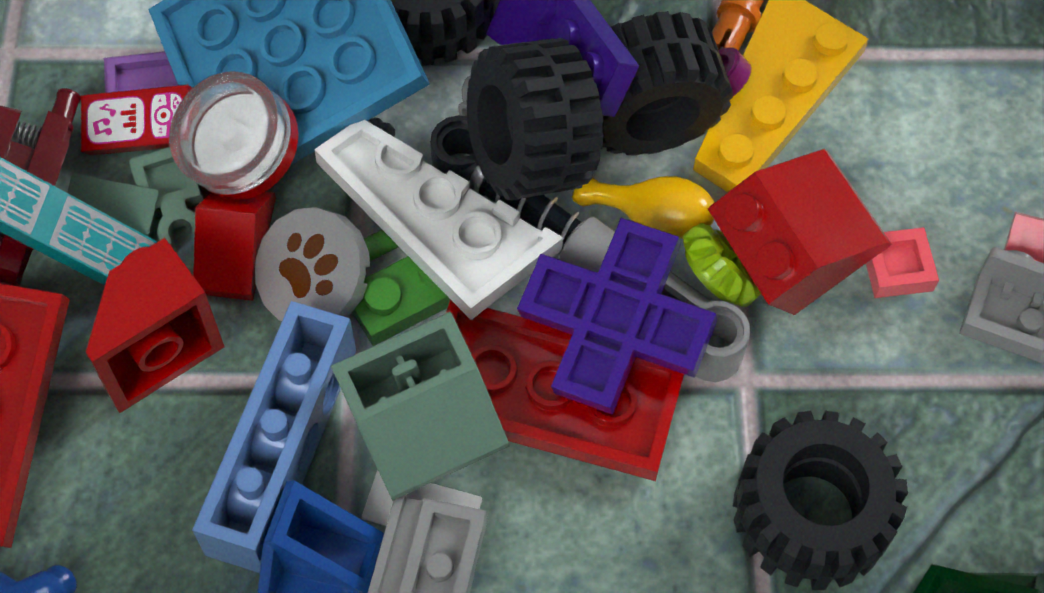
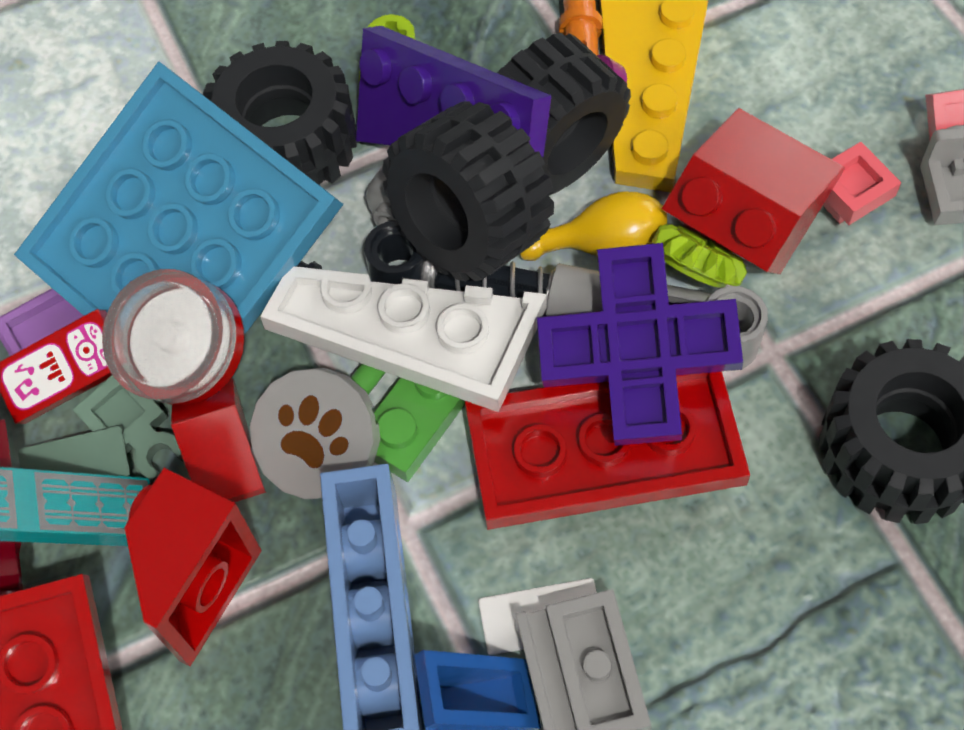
camera: 20 degrees left, 0 degrees up
(421, 405) = (503, 516): sand green slope -> none

